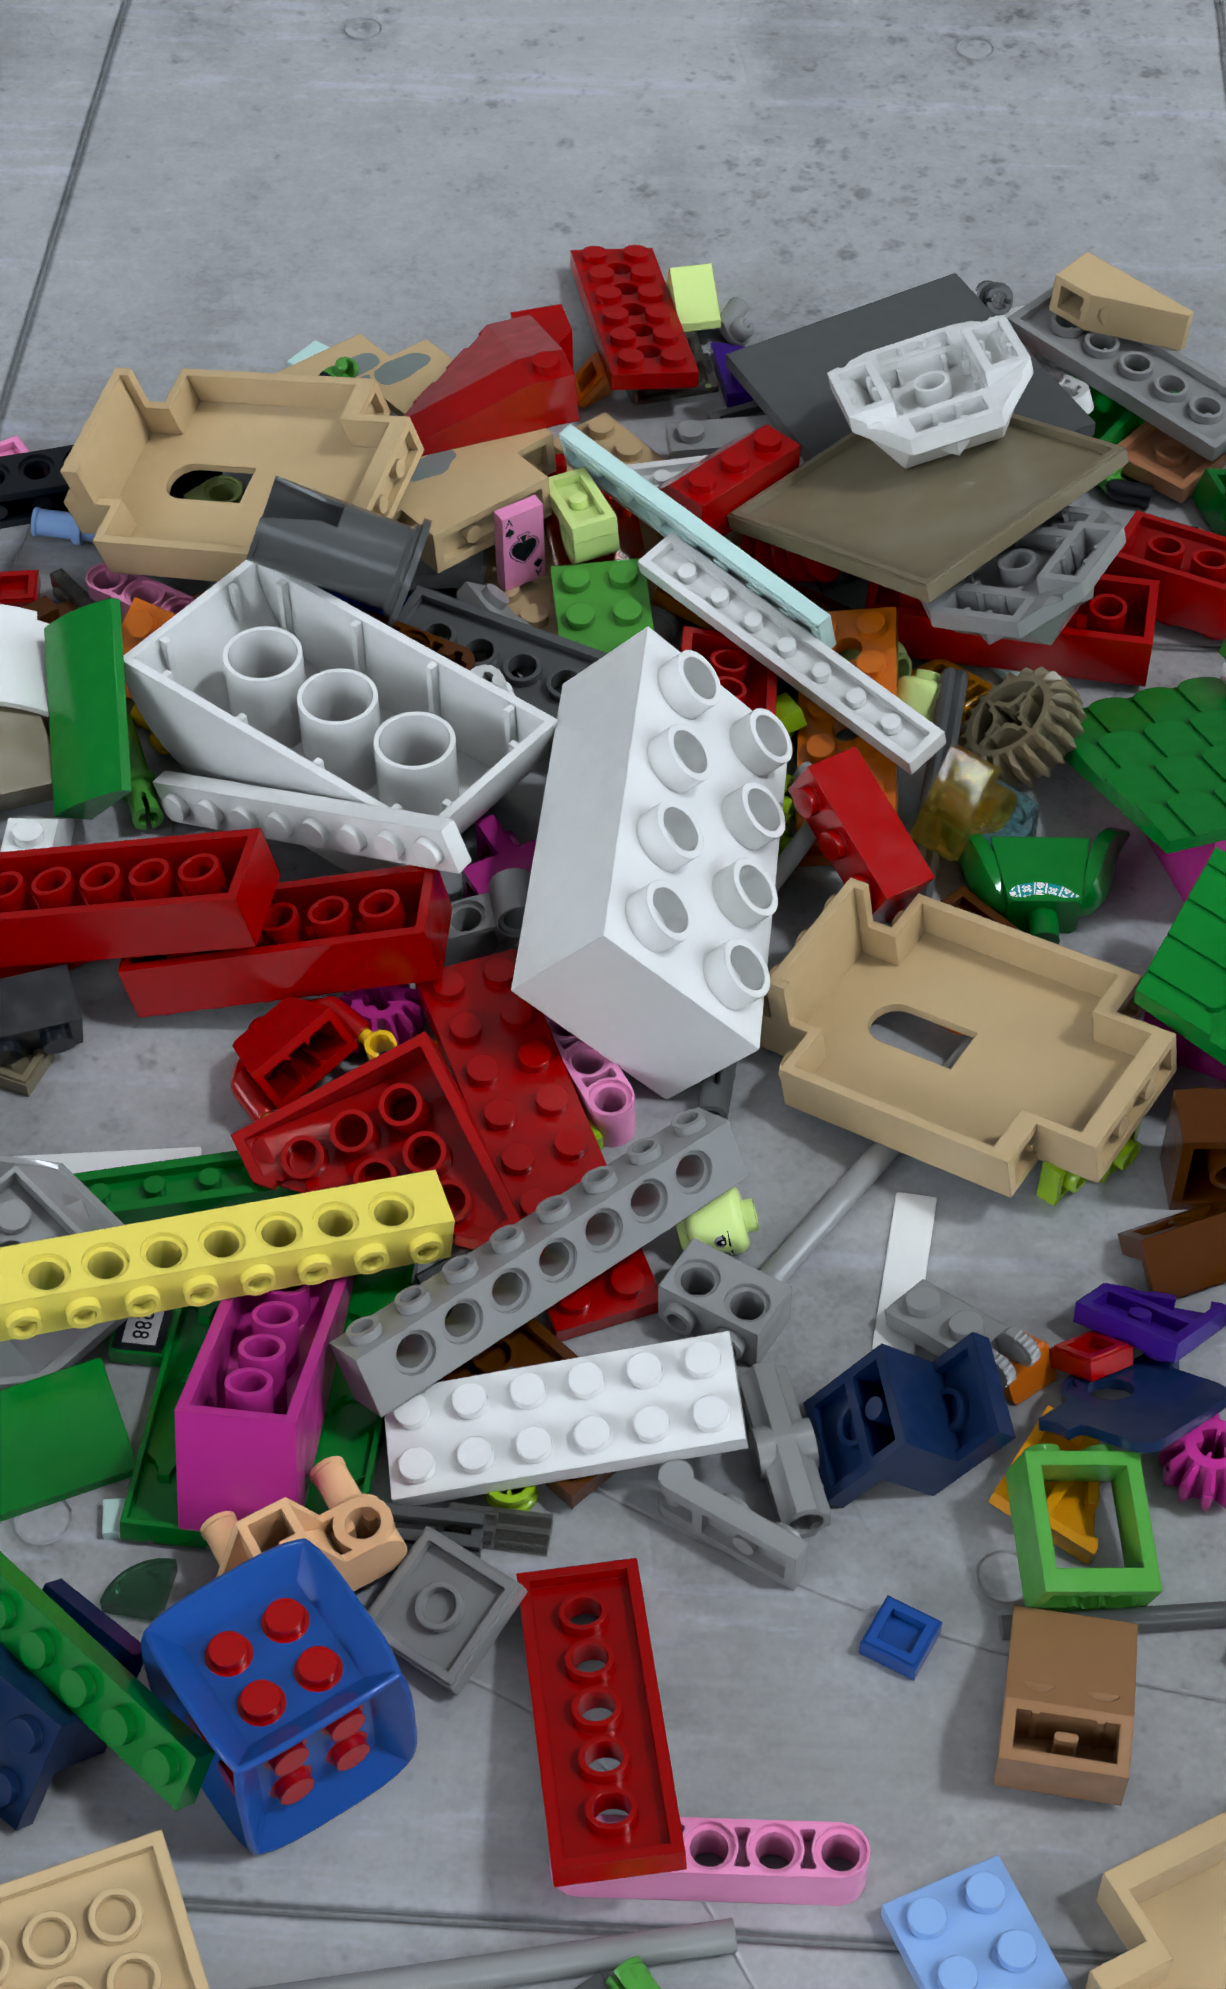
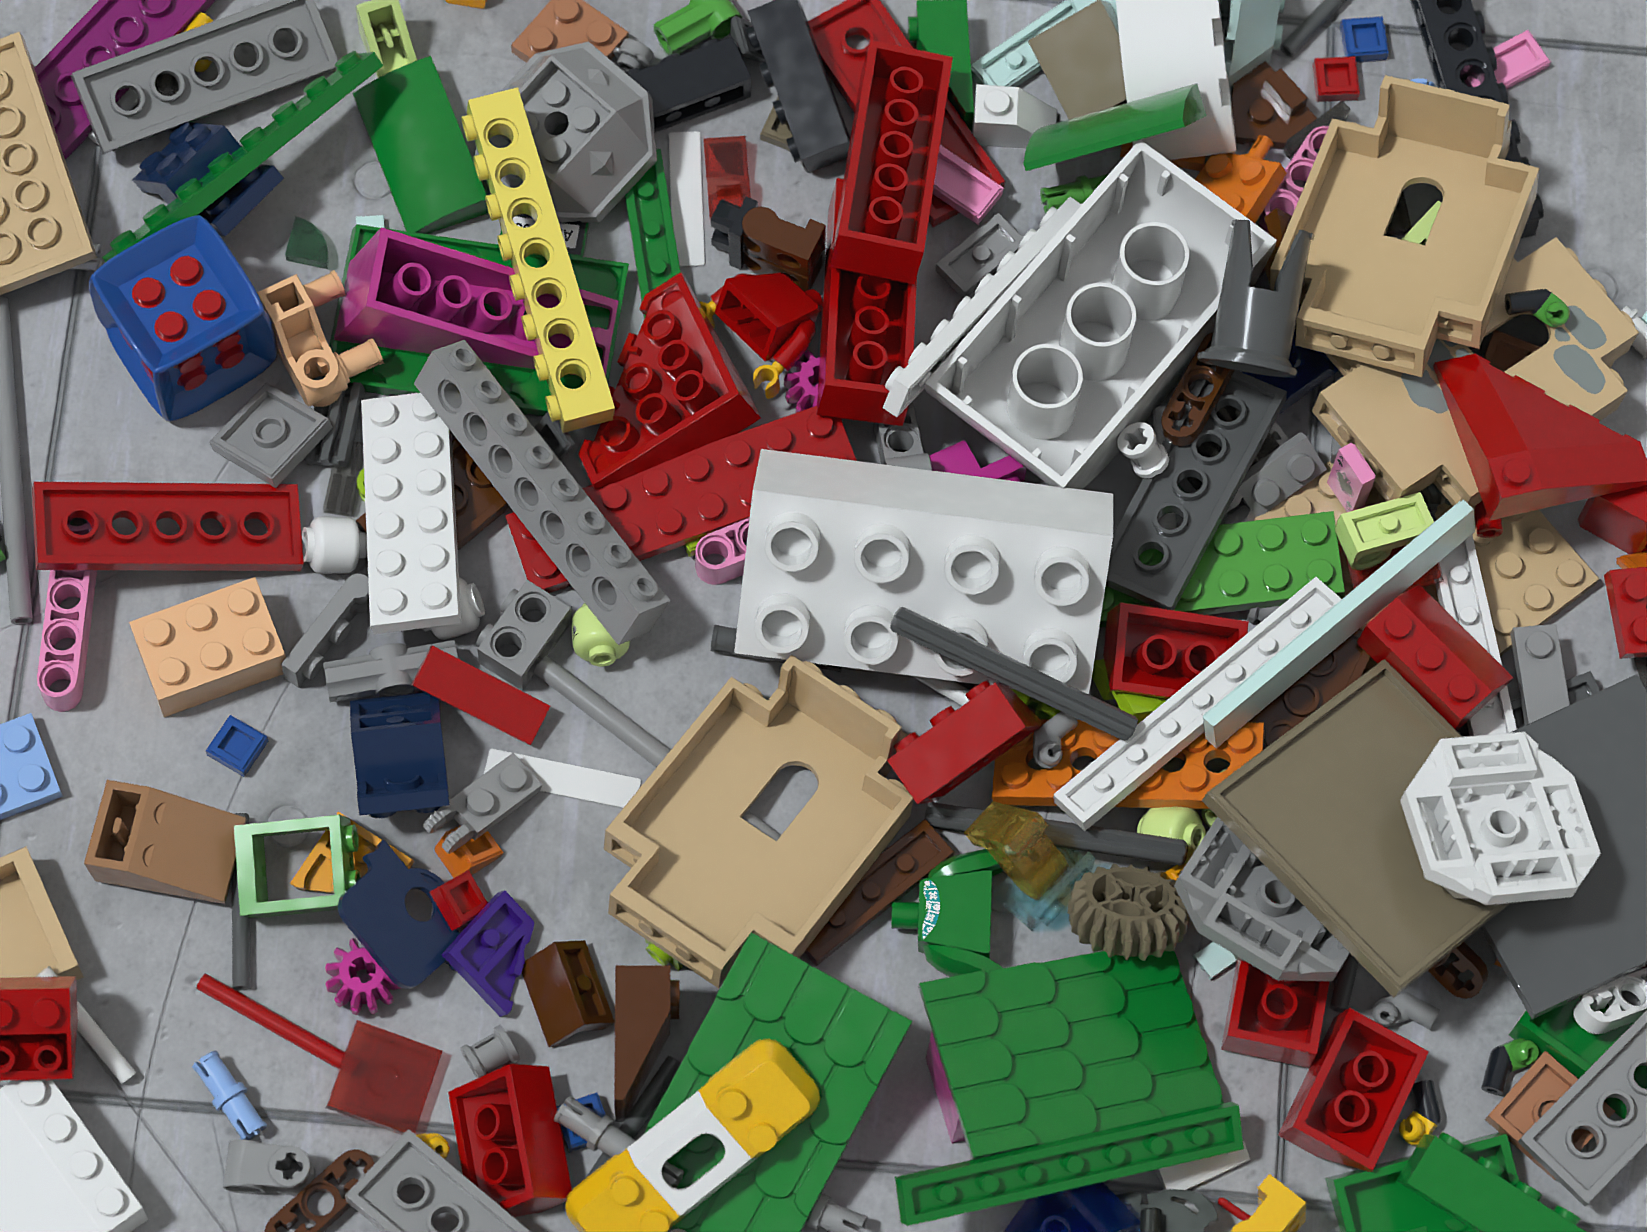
camera: 85 degrees right, 20 degrees up
(99, 1121) = (726, 170): none -> clear red slope
(192, 1051) = (768, 243): none -> reddish brown hips
(606, 1521) = (333, 545): none -> white head
(769, 1666) = (209, 646): none -> light nougat brick
(786, 766) = (1013, 673): none -> dark grey axle
(815, 1340) = (480, 695): none -> red tile

